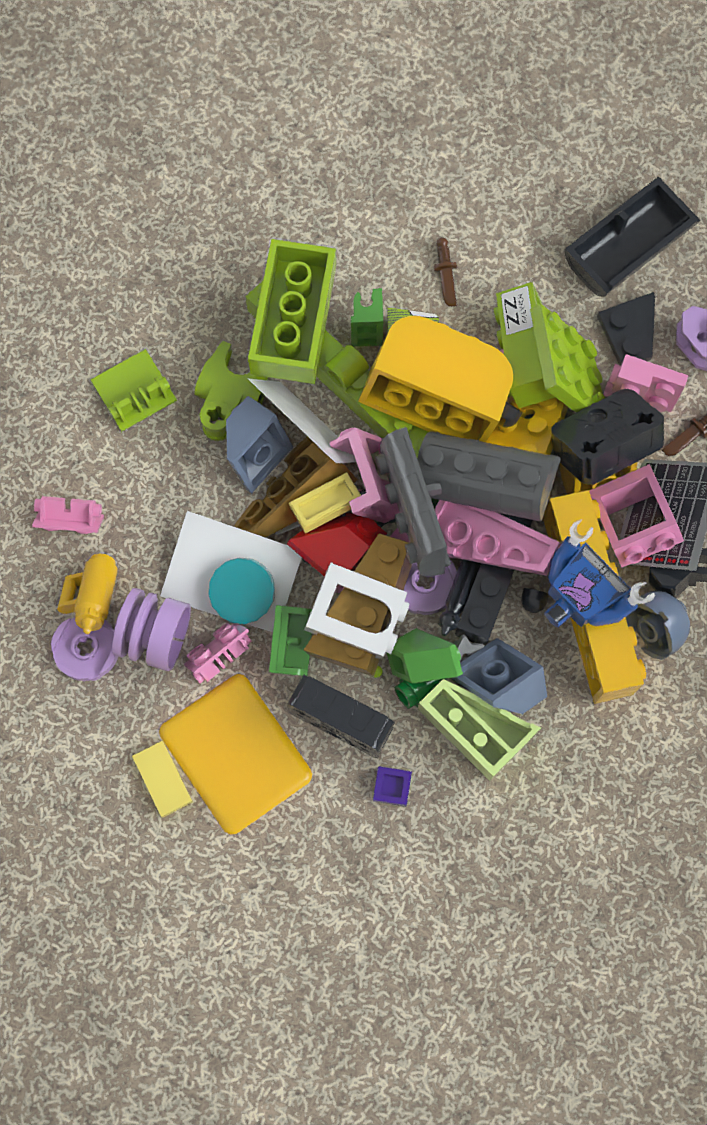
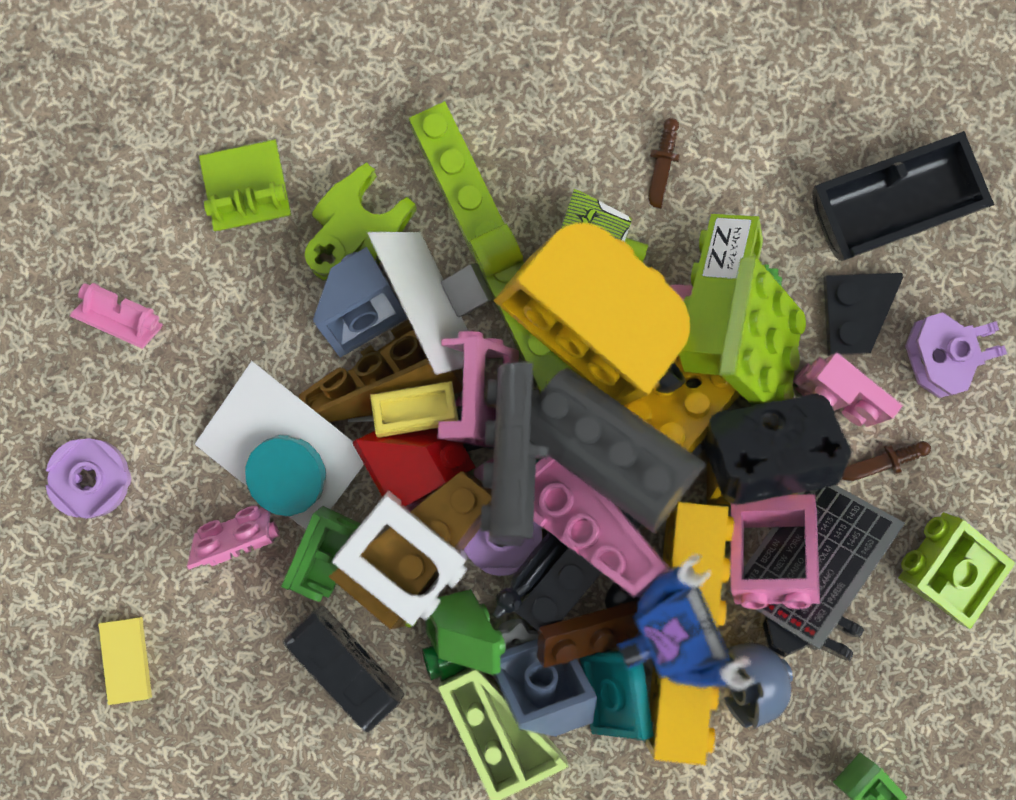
camera: 20 degrees right, 10 degrees up
(94, 593) = (114, 421): yellow piece -> none
(145, 627) = (158, 485): lavender wheel -> none
(235, 753) = (218, 658): yellow piece -> none
(292, 311) = (452, 161): lime brick -> none
(332, 409) = (467, 290): none -> light grey tile
(367, 321) = (545, 201): bright green hinge -> none
(392, 786) = (379, 762): dark purple plate -> none
(517, 628) = (586, 634): none -> reddish brown plate
(563, 664) = (621, 697): none -> teal tile

